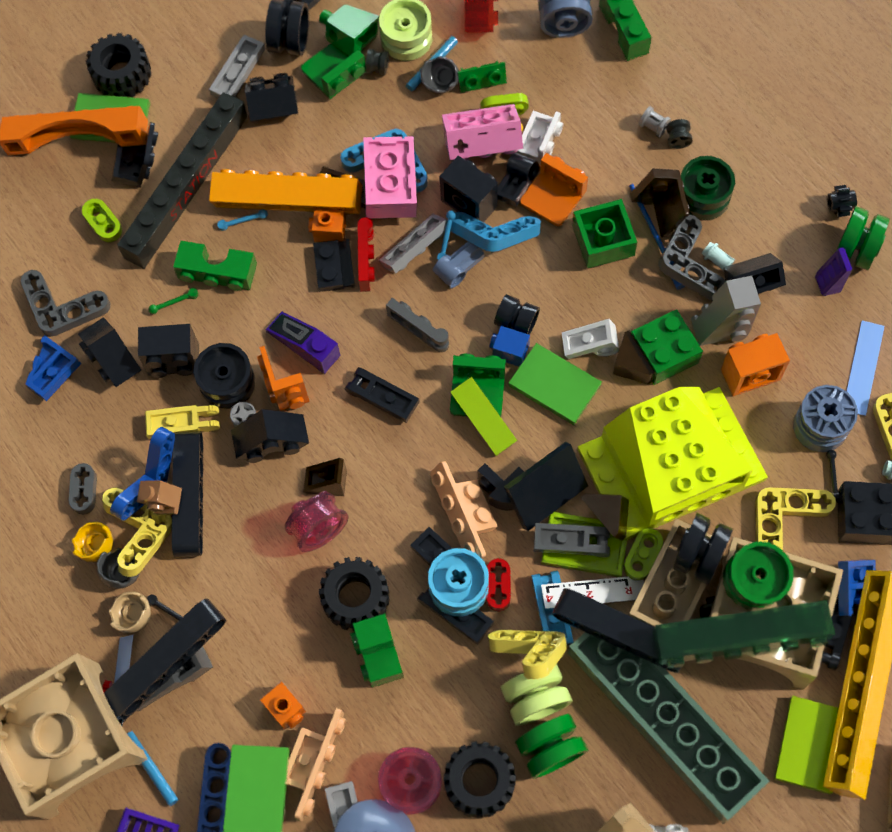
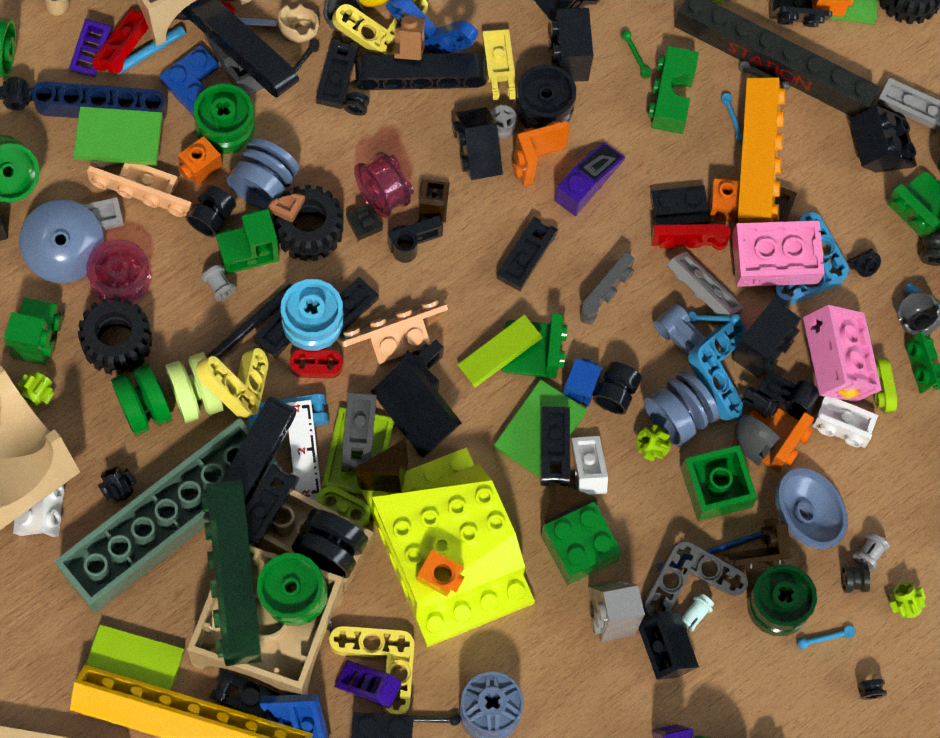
camera: 80 degrees right, 0 degrees up
(143, 795) = (121, 42): none -> red plate
(186, 573) = (337, 73): none -> black plate
(188, 729) = (185, 76): none -> blue plate
(189, 209) = (745, 67): none -> dark grey hinge
(221, 554) = (356, 103): none -> black bush
(226, 670) = (224, 117): none -> green wheel
(299, 635) = (262, 173): none -> sand blue wheel
(345, 608) = (287, 206): none -> nougat tile
(348, 544) = (364, 221): none -> pearl dark grey tile
(349, 695) = (210, 211): none -> black wheel
(358, 485) = (420, 232): none -> black plate
(387, 116) = (865, 263): none -> black plate
(417, 680) = (218, 283): none -> light grey bush
(457, 649) = (249, 325): none -> black bar
(527, 199) = (761, 403): none -> black pin
(538, 260) = (681, 407): none -> sand blue wheel
(560, 205) = (755, 438): none -> dark grey brick
(567, 287) = (653, 443): none -> lime gear
(576, 367) = (555, 445): none -> black plate
(623, 162) = (811, 508): none -> sand blue dish
(634, 768) = (117, 483): none -> black gear
(656, 609) = (268, 502): none -> black plate
(696, 95) = (907, 600): none -> lime gear
(722, 144) = (848, 632): none -> dark azure hinge
(725, 455) = (434, 561): none -> orange brick
(754, 363) = (556, 633): orange brick -> none
(773, 125) = (872, 689): none -> black bush
(801, 523) = (383, 691): none -> dark purple slope

